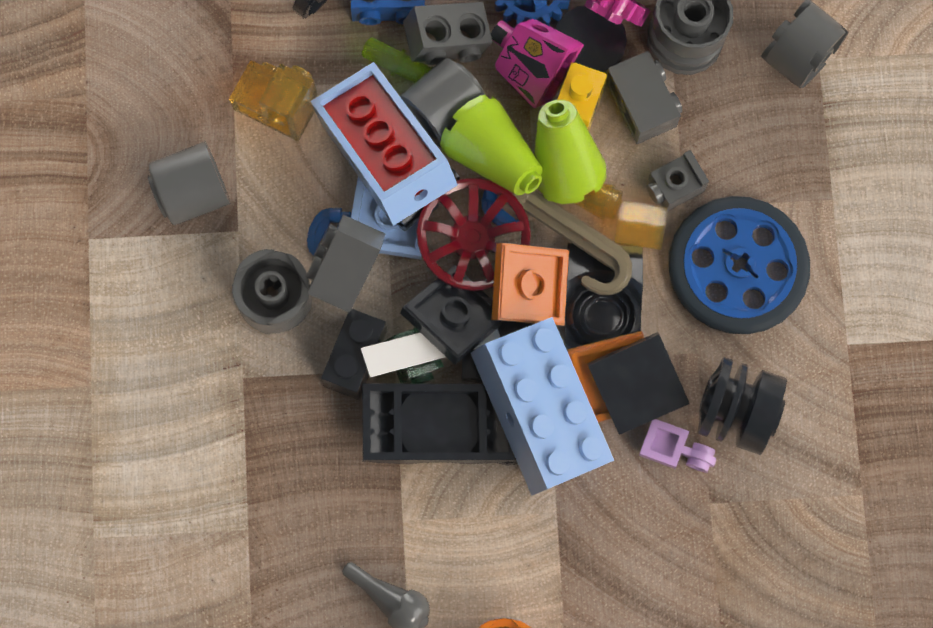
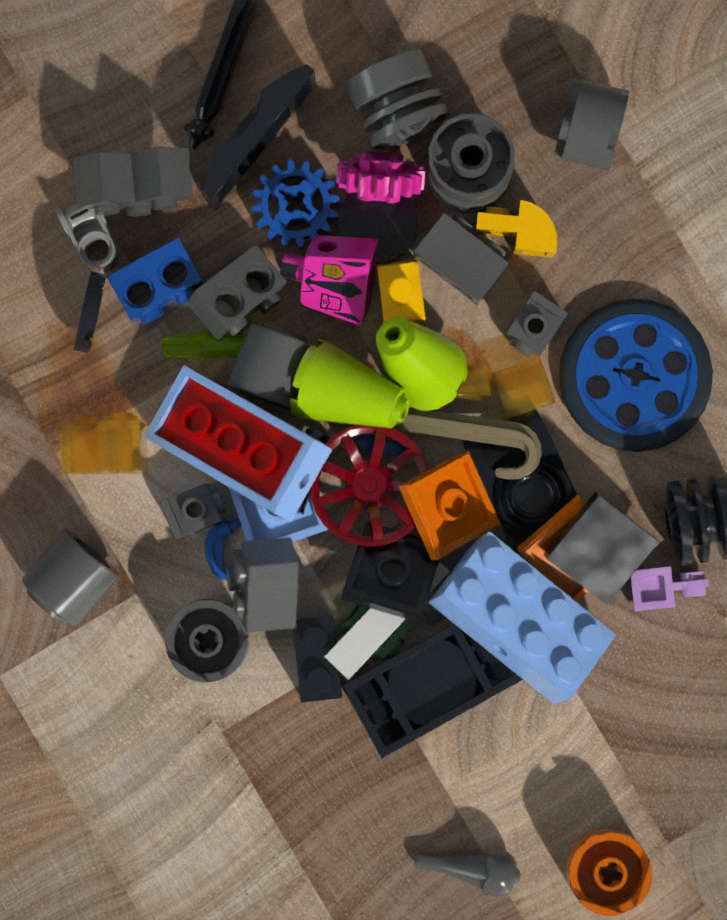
camera: 25 degrees left, 10 degrees up
(308, 196) = (178, 518): none -> dark grey brick
(710, 103) = (531, 228): none -> yellow brick

